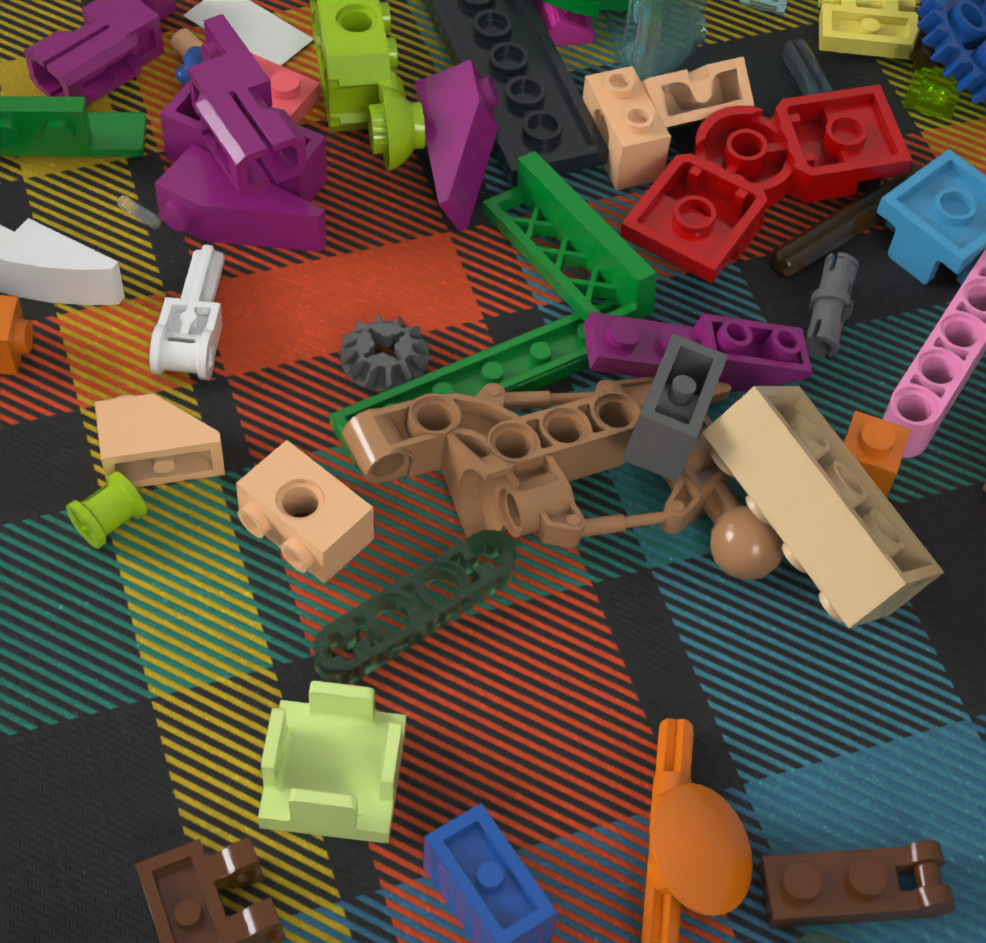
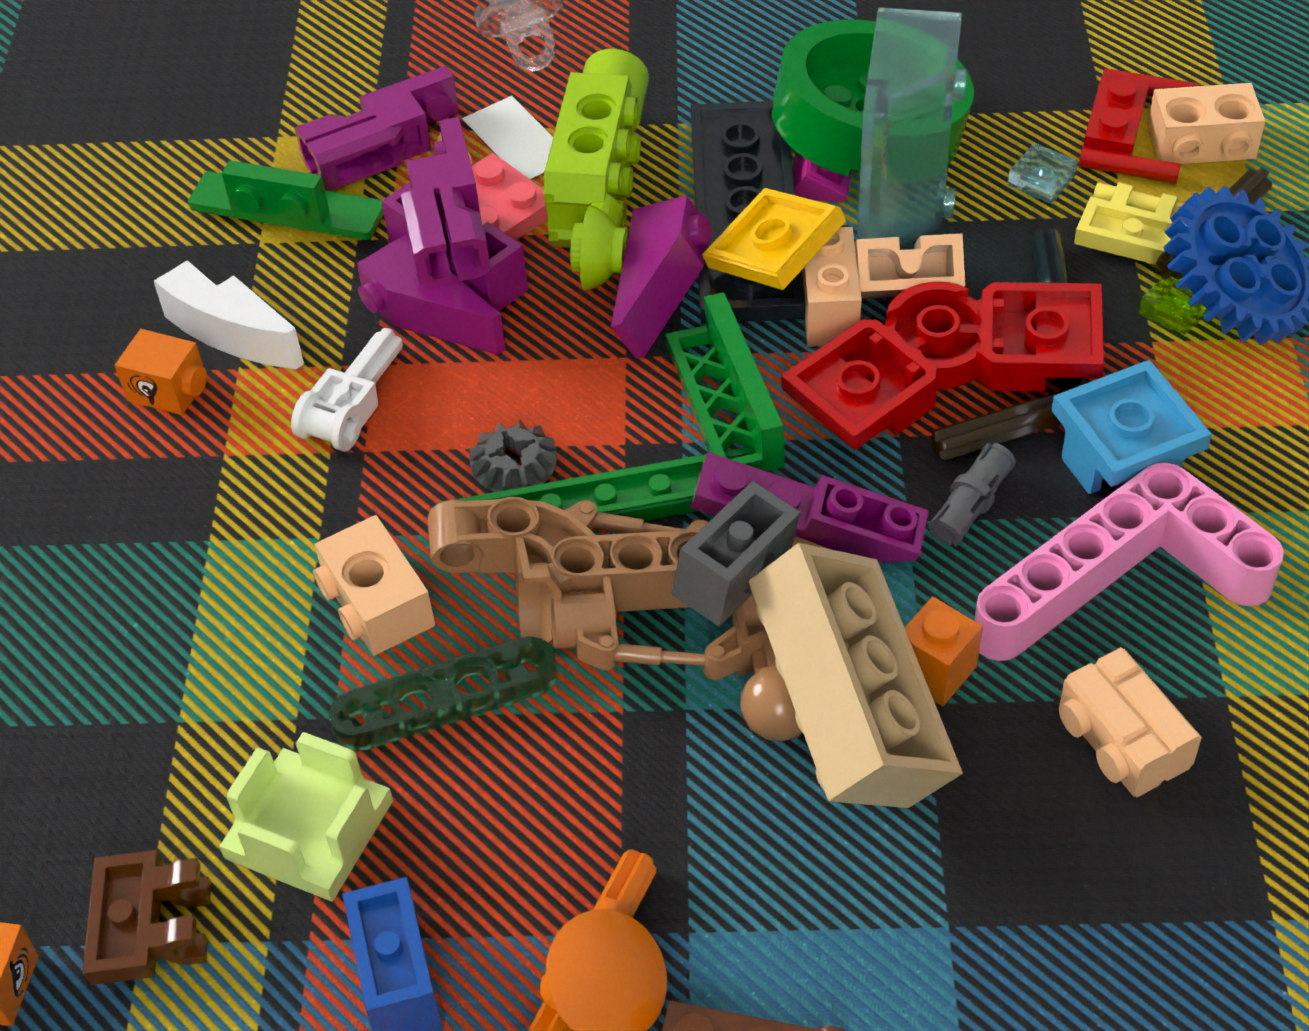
camera: 25 degrees right, 5 degrees down
(106, 509) = (202, 546): lime bush -> none
(139, 212) = (346, 289): clear piece -> none
(155, 441) = (263, 496): light nougat slope -> none
(564, 89) = (774, 238): none -> yellow tile

